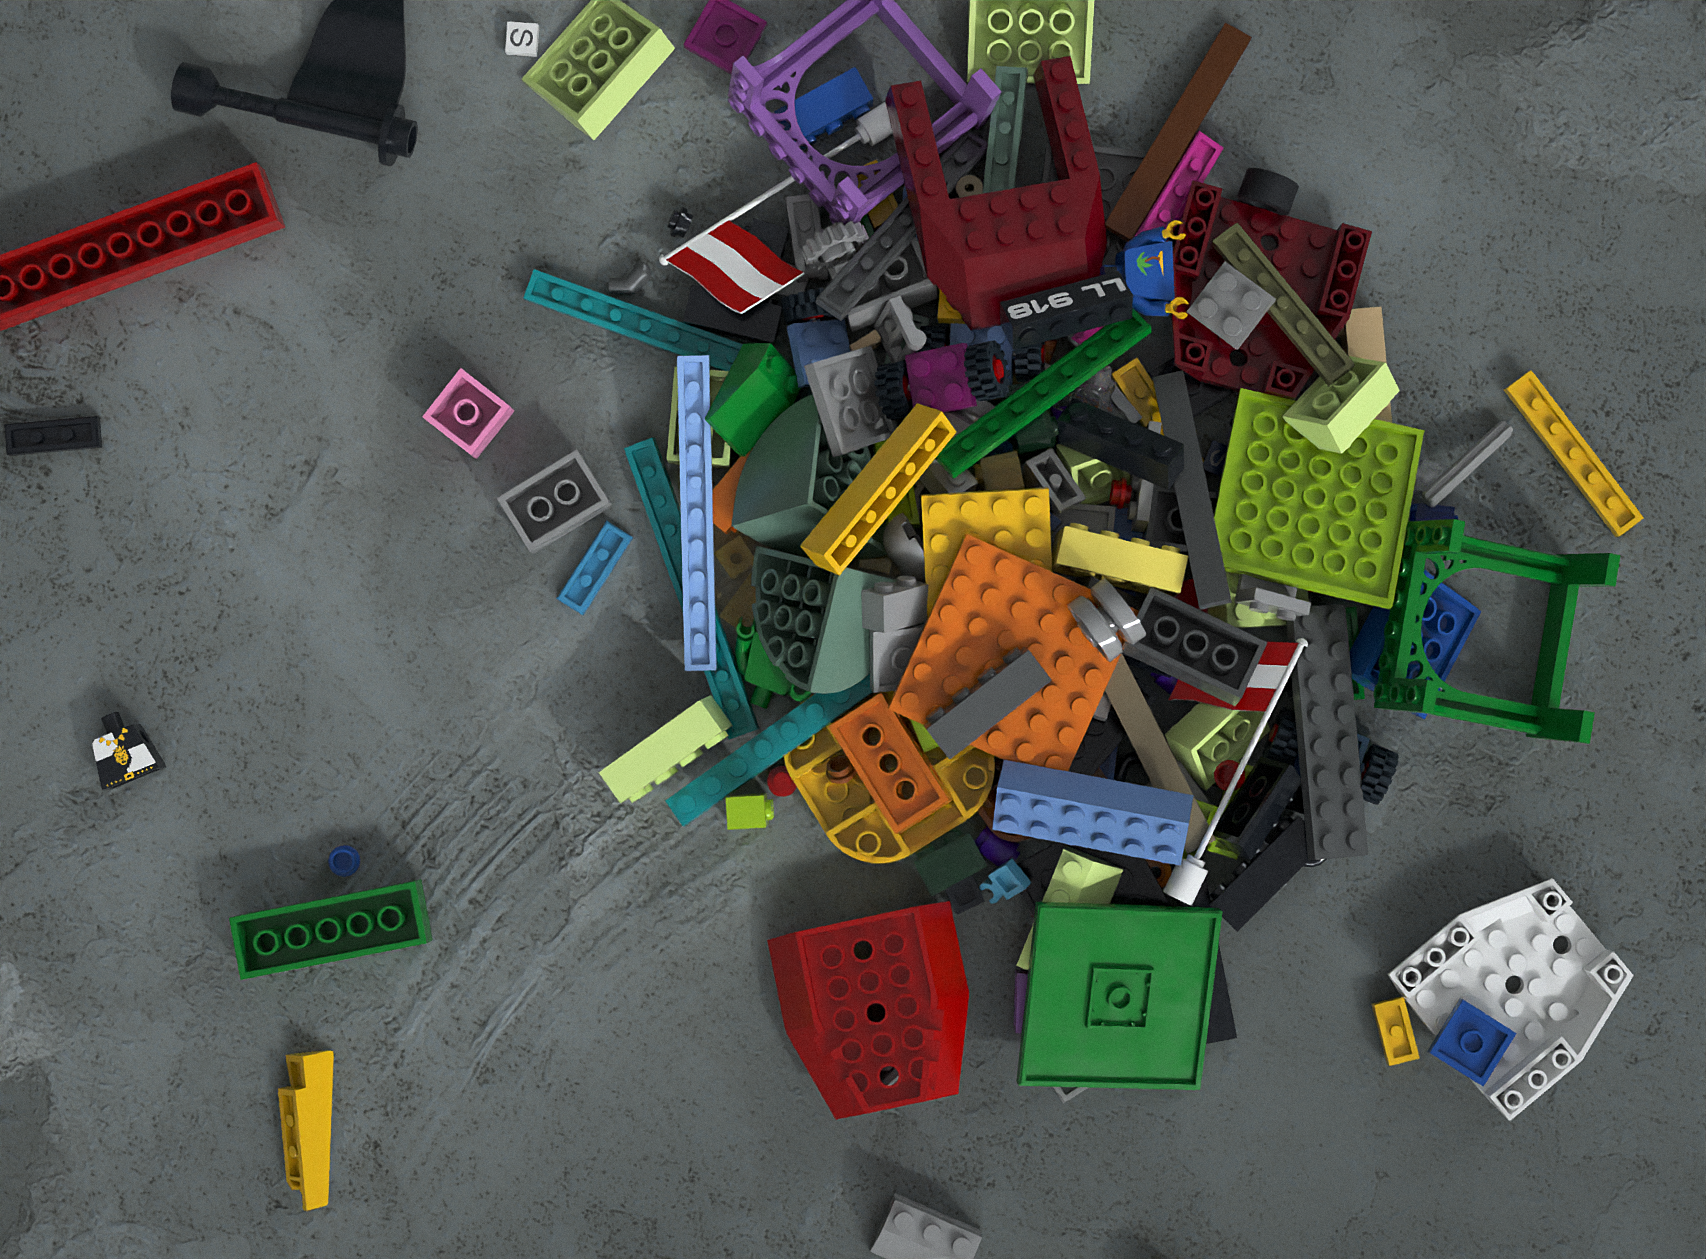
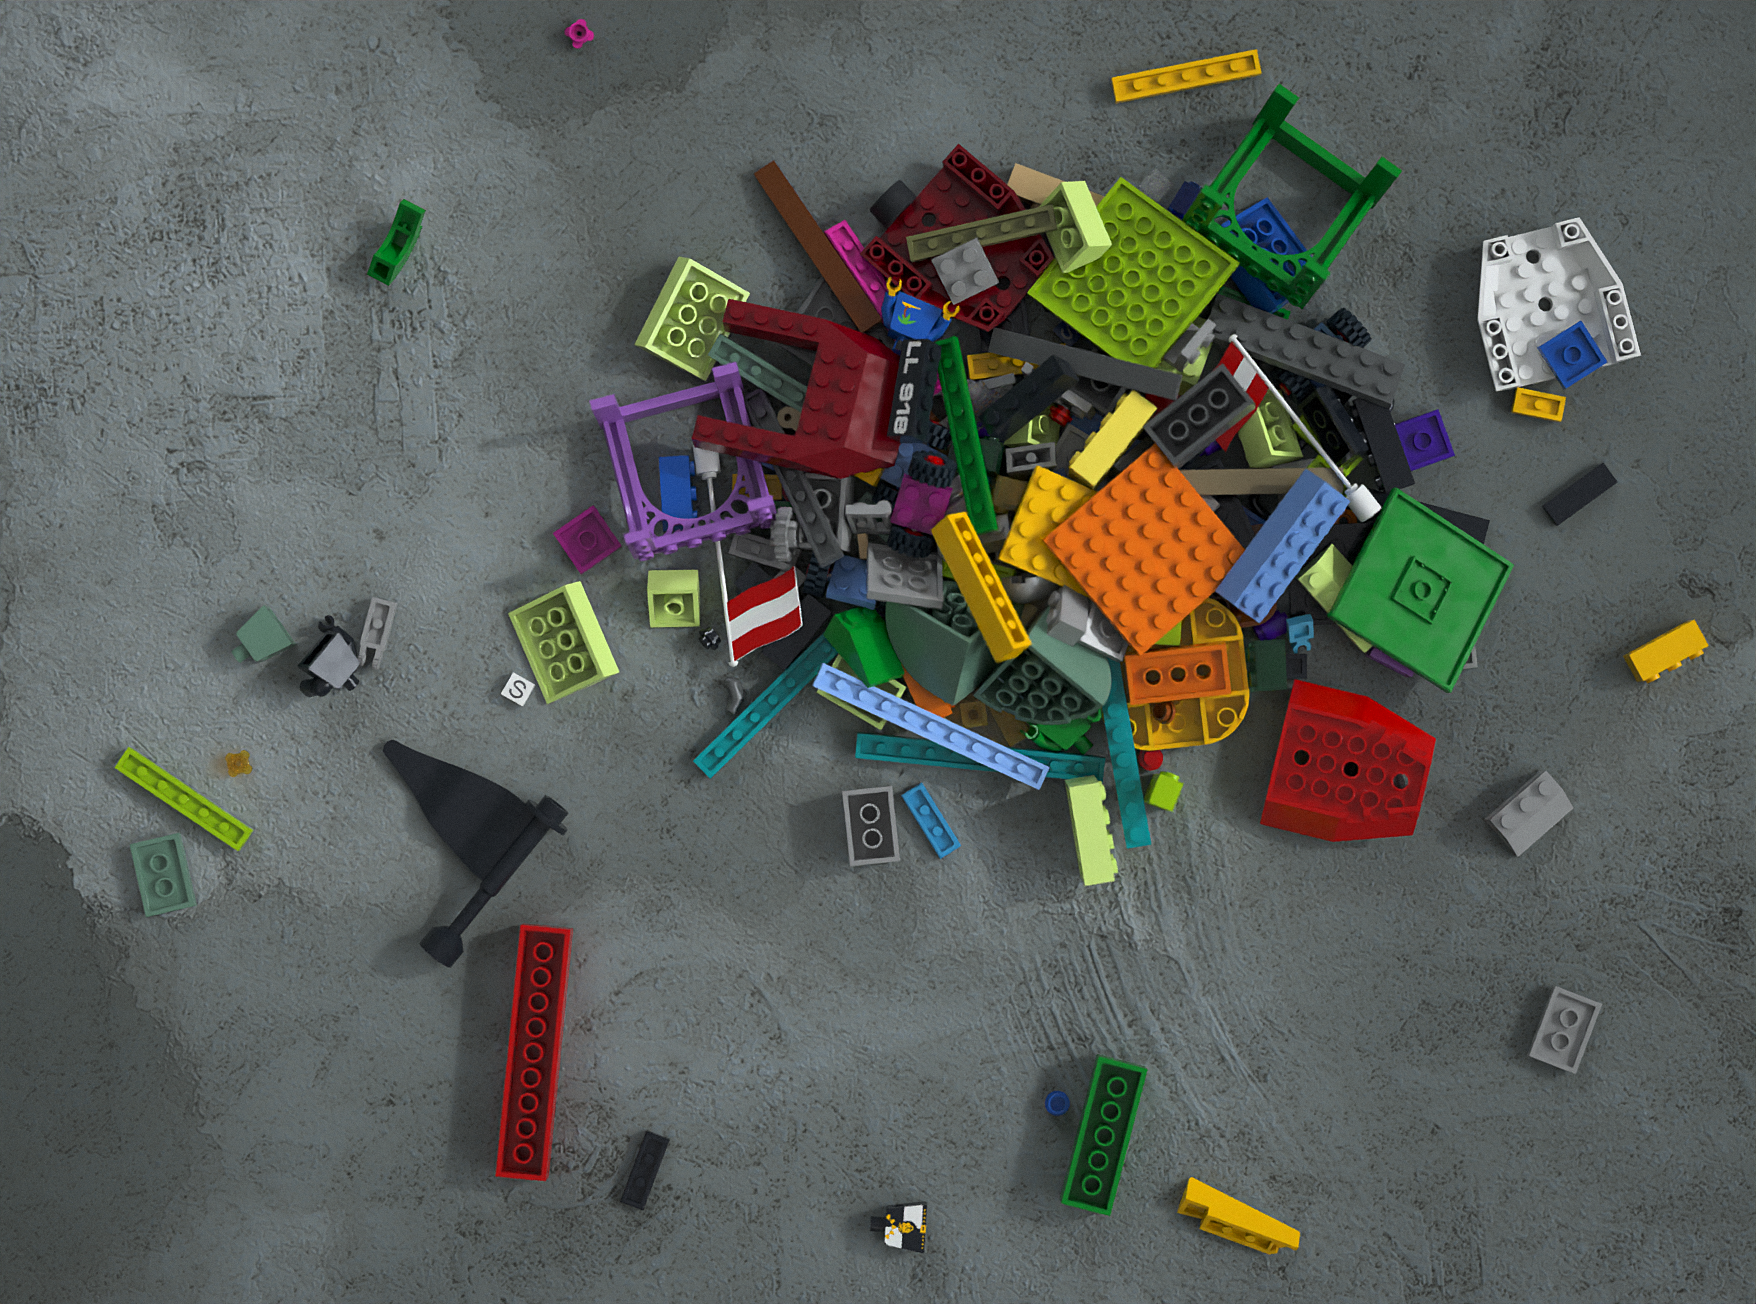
camera: 65 degrees left, 0 degrees up
(468, 413) = (776, 858): bright pink brick -> none
(705, 161) = (673, 598): none -> yellowish green slope
(986, 702) = (1170, 583): dark grey brick -> none
(1103, 622) = (1154, 471): light grey wheel -> none
(1224, 773) = (1298, 437): red plate -> none
(1292, 920) = (1424, 440): none -> dark purple plate
(1316, 1126) = (1579, 494): none -> black tile
(1466, 464) = (1157, 156): light grey axle -> none

